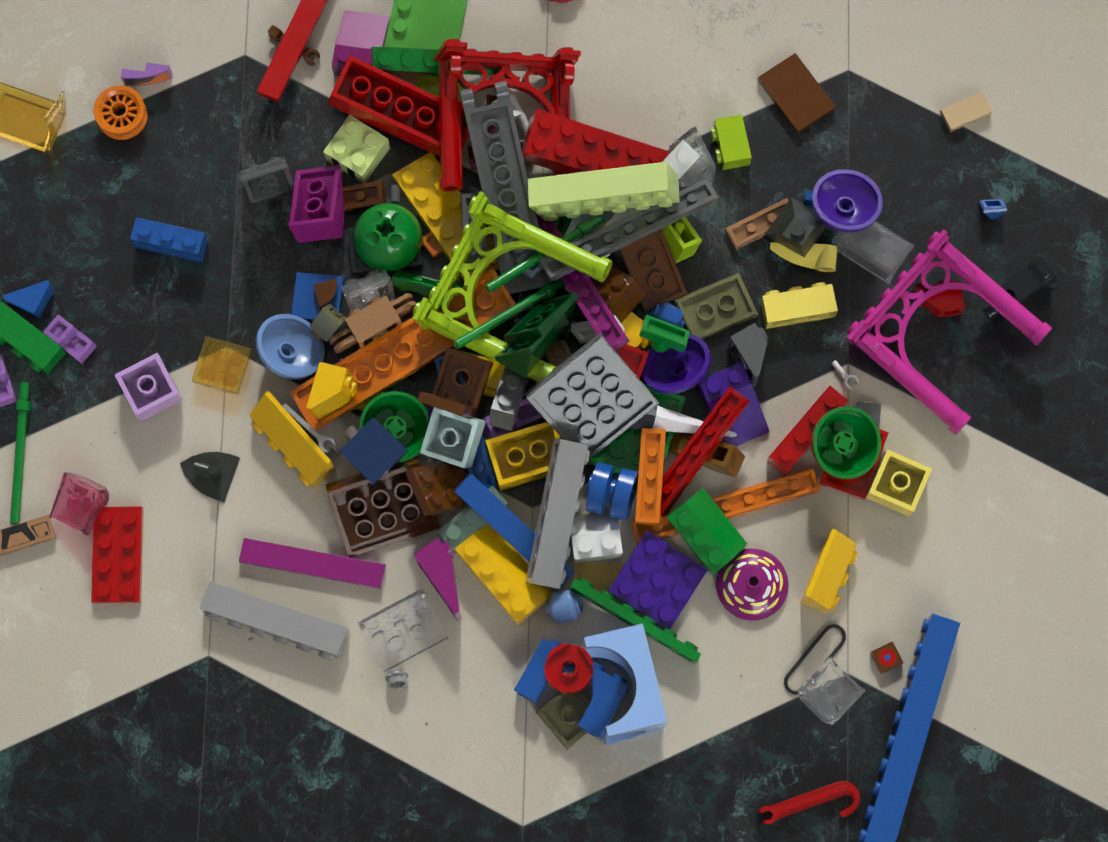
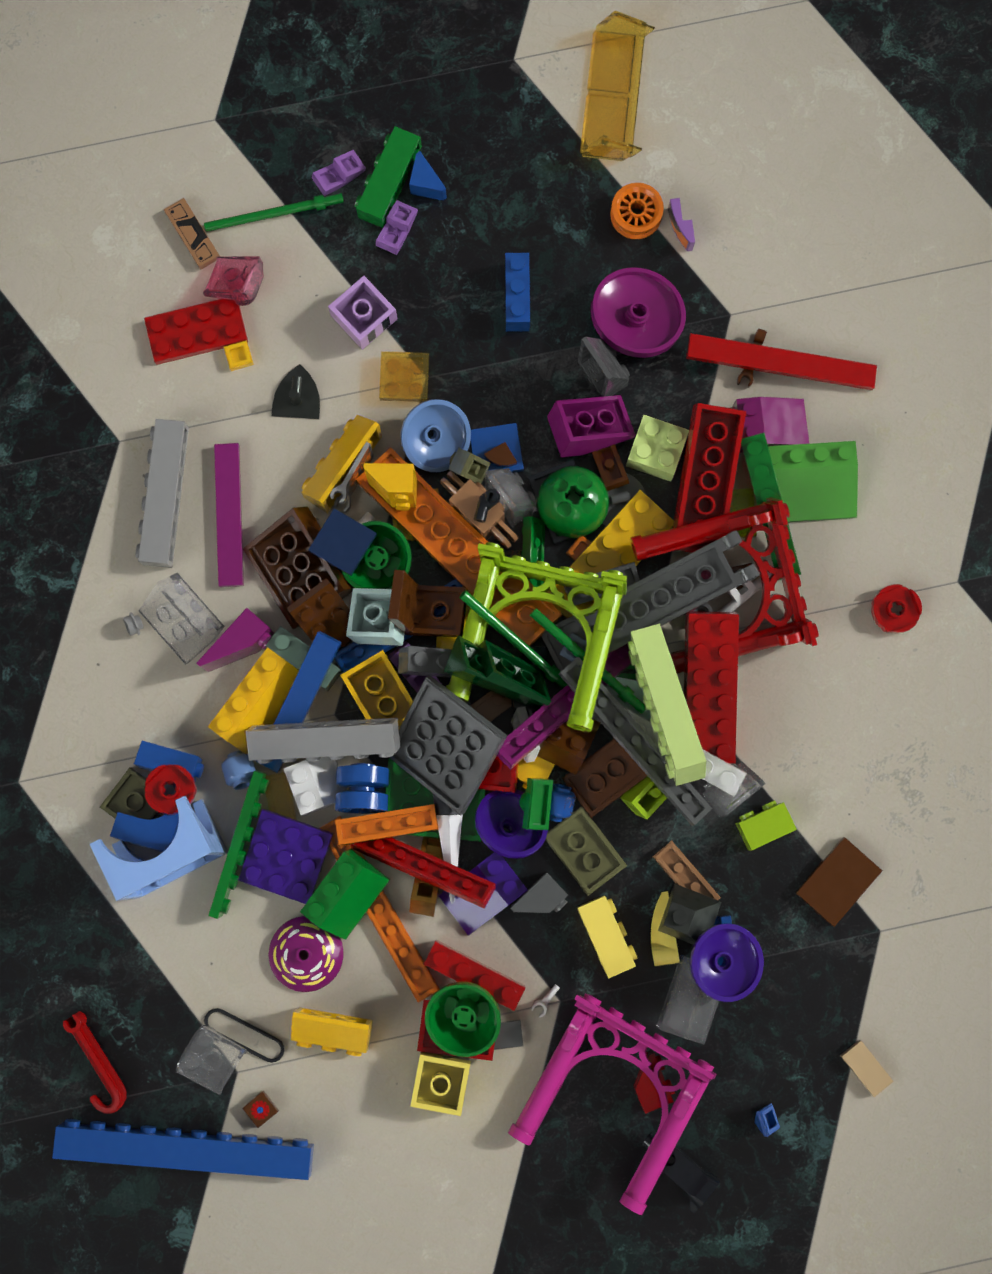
camera: 75 degrees right, 5 degrees up
(155, 519) = (238, 355): none -> yellow tile
(222, 133) = (638, 312): none -> magenta dish
(373, 309) = (485, 503): none -> black arm

